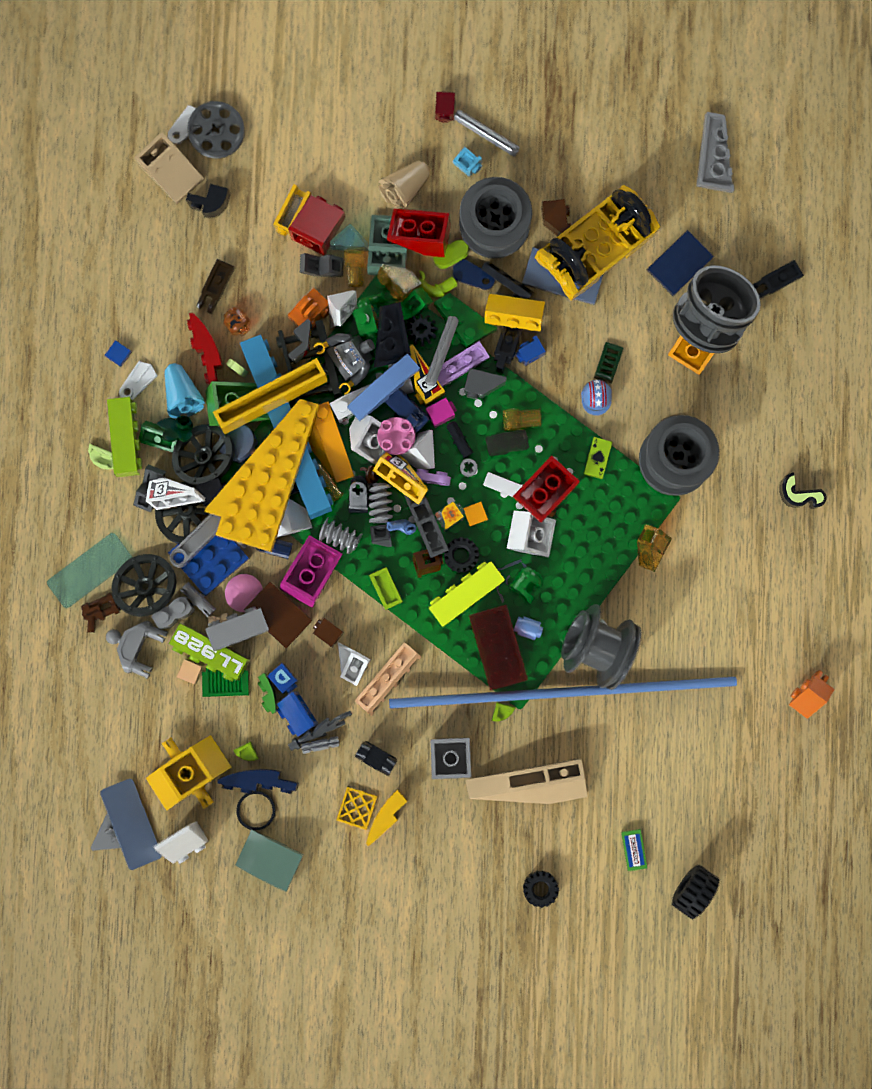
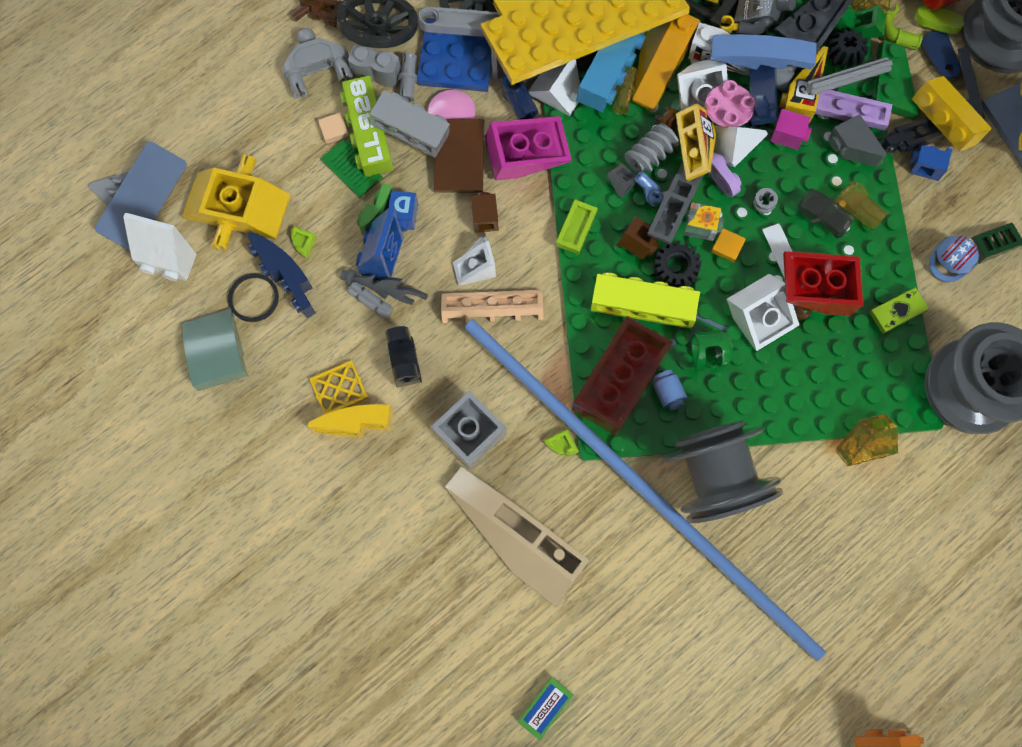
camera: 50 degrees right, 10 degrees down
(339, 536) = (585, 140): light grey piece -> none
(358, 496) = (638, 124): piece -> none
(459, 439) = (783, 169): black axle -> none
(540, 876) = (400, 640): black tyre -> none

